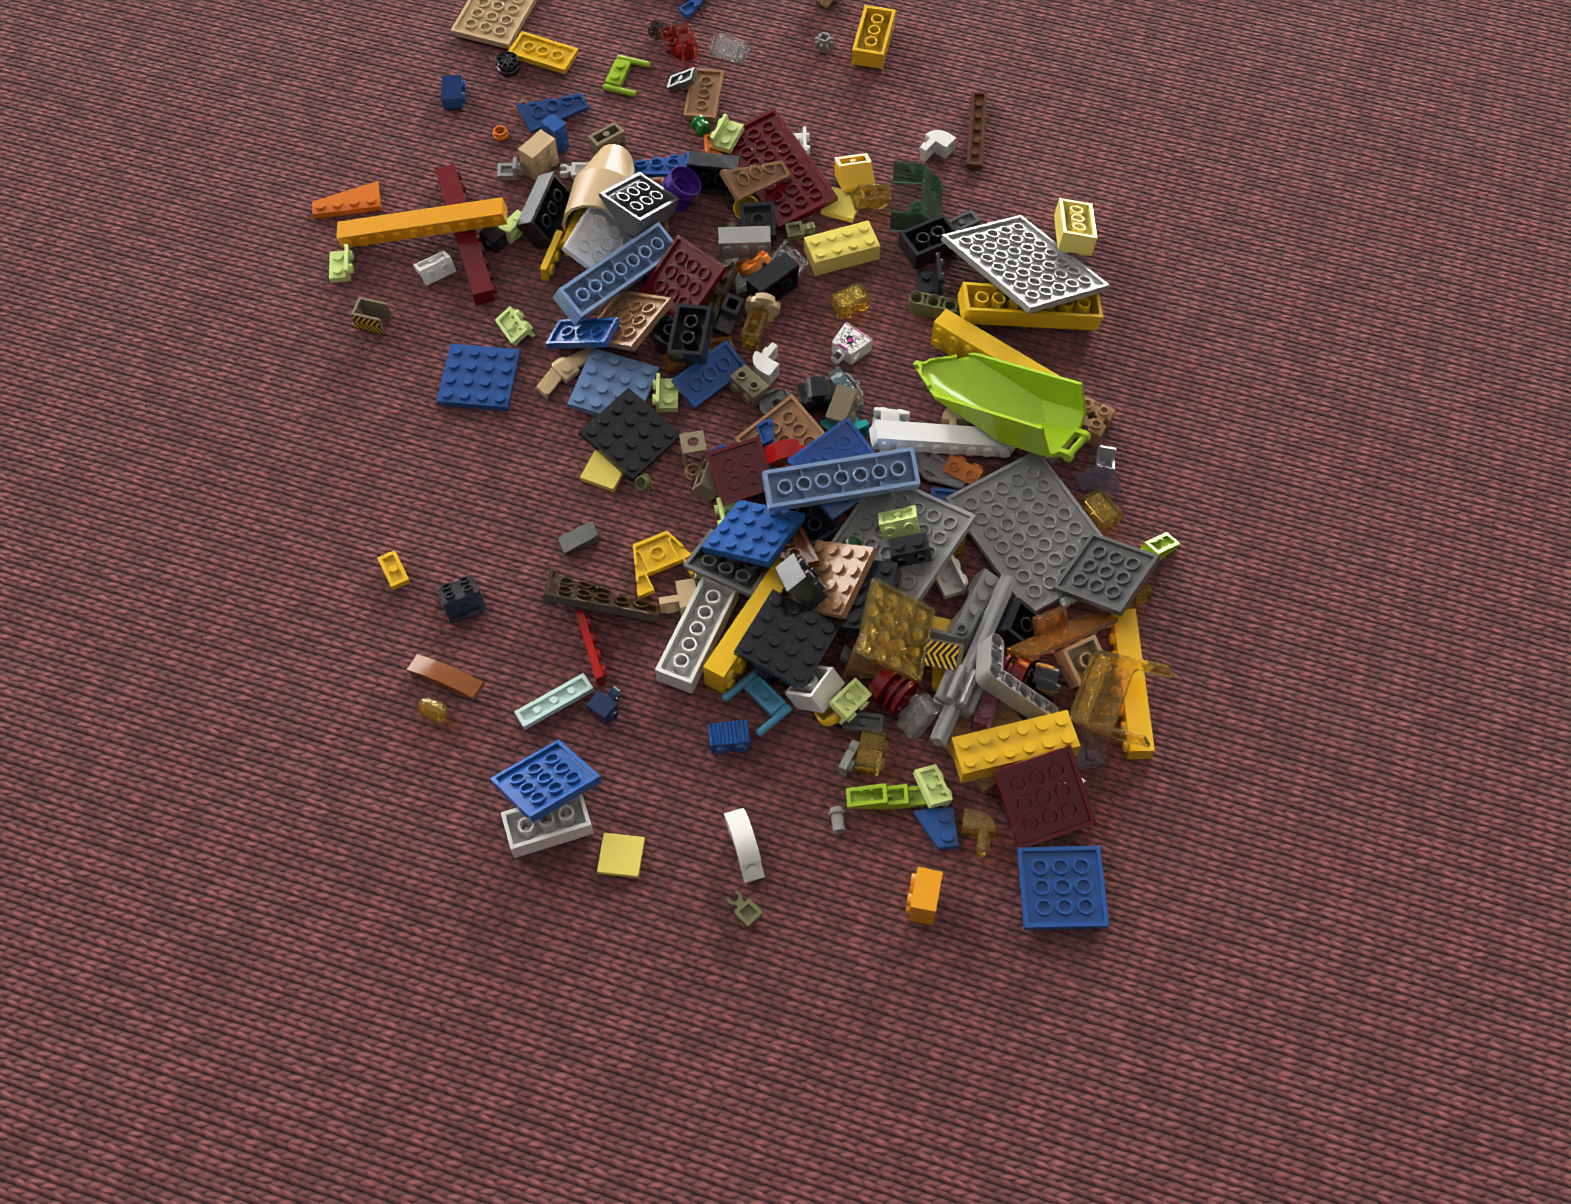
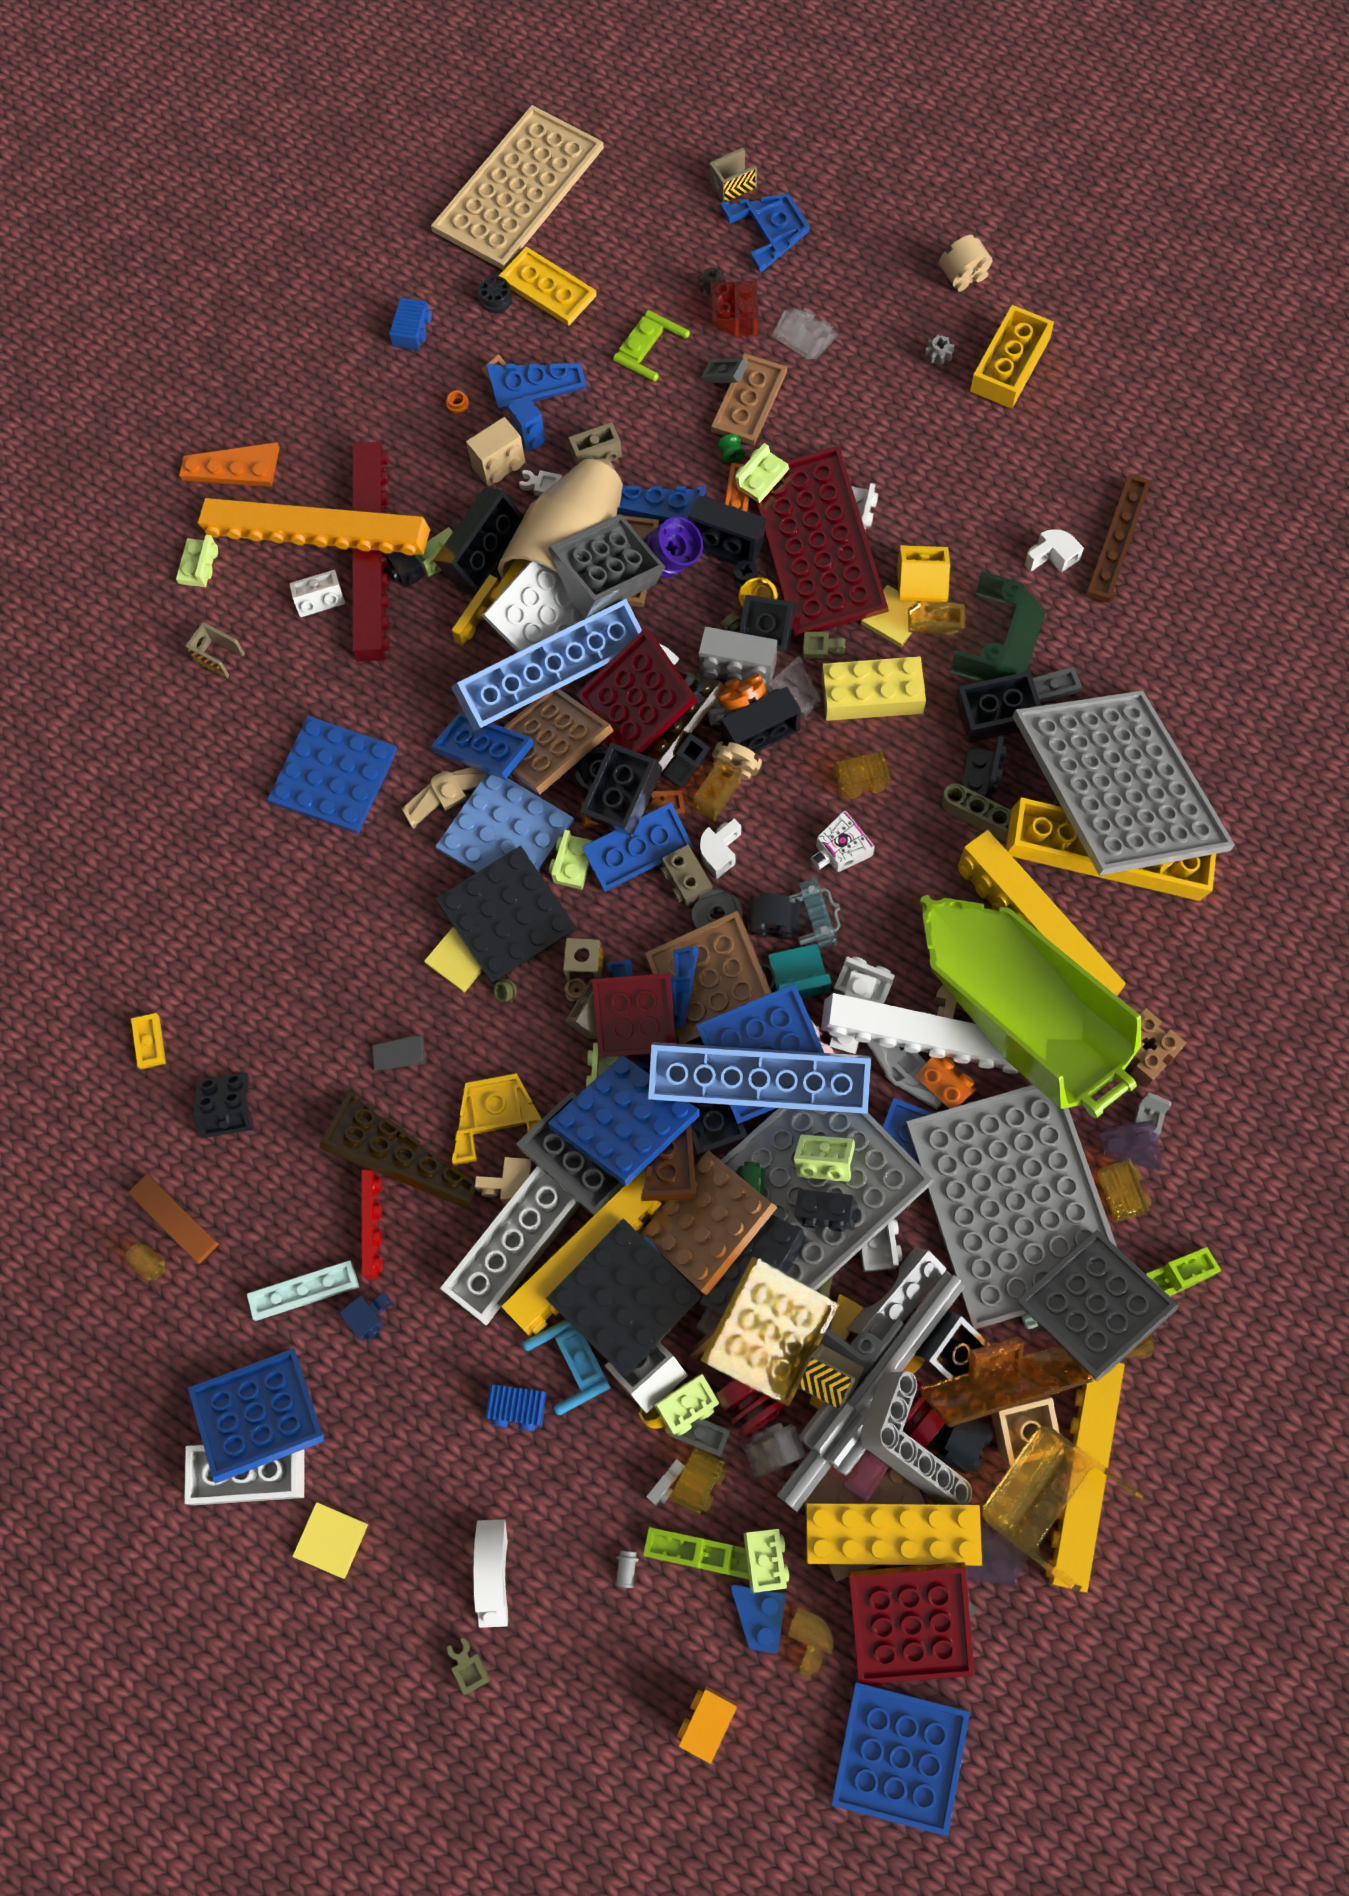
camera: 20 degrees right, 10 degrees up
(509, 171) = (452, 464): light grey bracket -> none
(514, 325) = (398, 708): yellowish green bracket -> none
(752, 179) = (771, 558): medium nougat wing -> none
(781, 451) = (700, 1004): red brick -> none
(802, 581) = (662, 1223): black brick -> none
(843, 404) = (804, 946): dark tan brick -> none
(1075, 227) = (1213, 735): light yellow brick -> none

